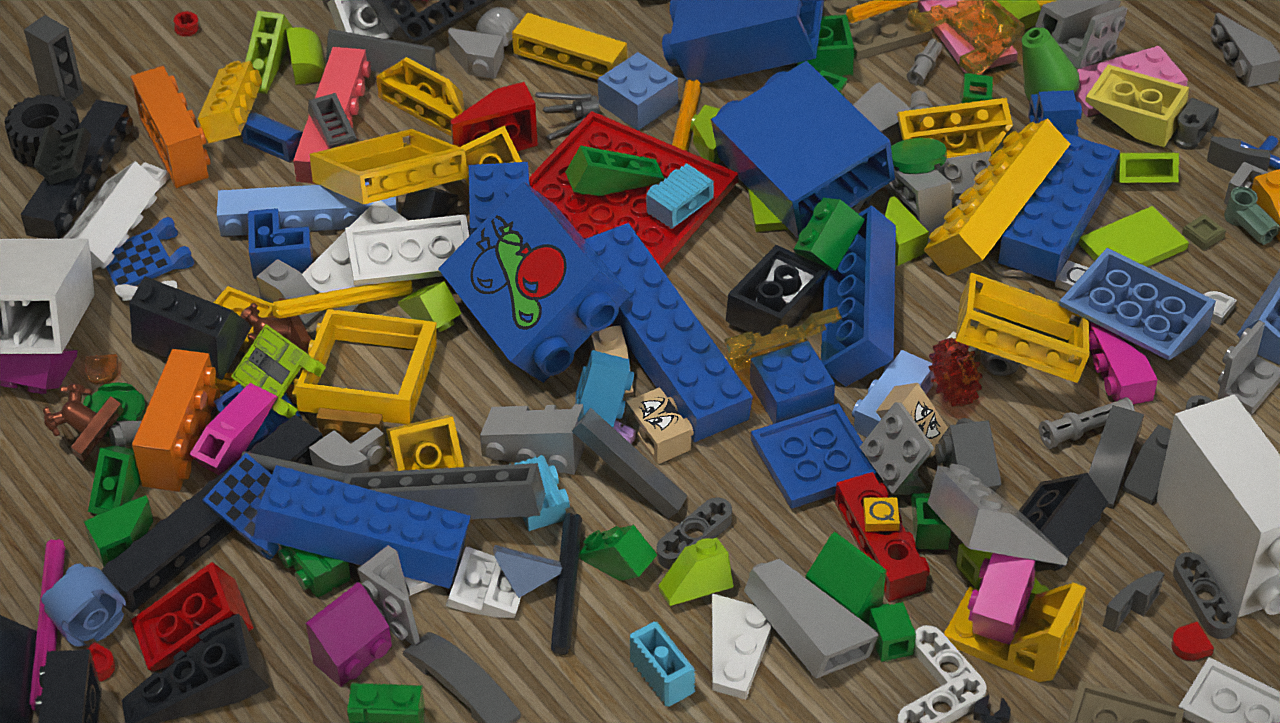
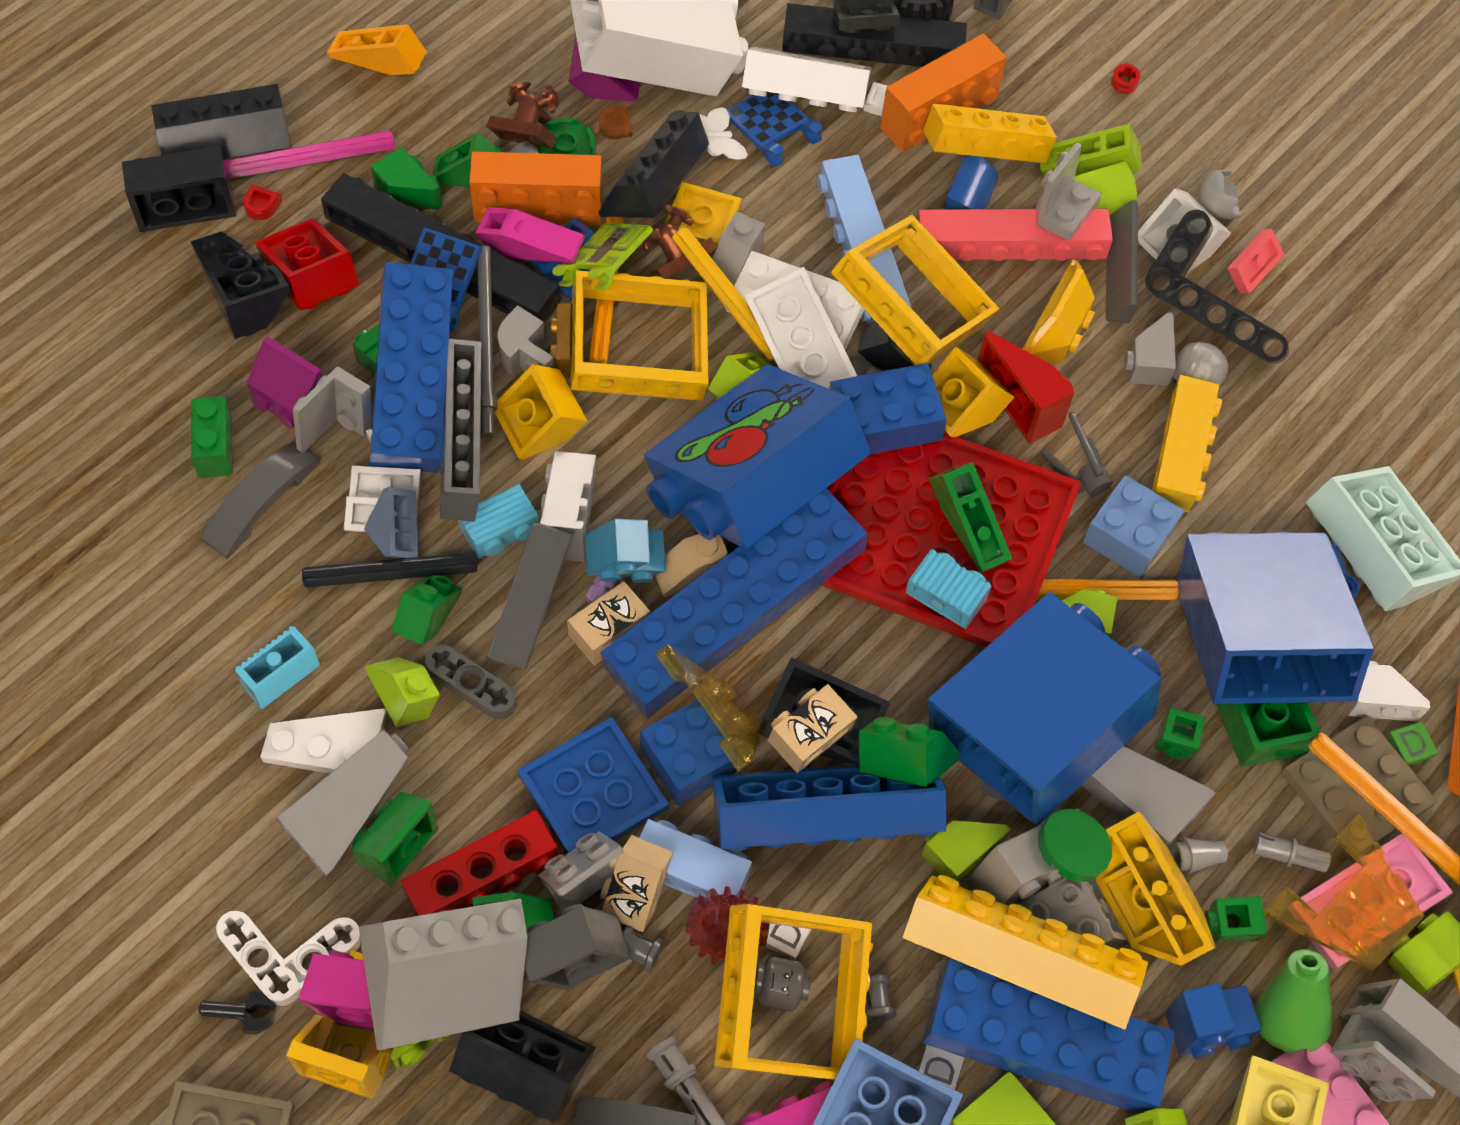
camera: 75 degrees right, 15 degrees up
(84, 605) = (302, 170): medium blue brick -> none
(272, 242) = (793, 218): blue brick -> none
(320, 60) = (1065, 201): none -> light grey bracket
(324, 105) = (992, 208): dark grey slope -> none
(800, 282) = (811, 727): none -> tan brick
(881, 514) = (487, 859): yellow tile -> none
(894, 631) = (349, 892): green brick -> none

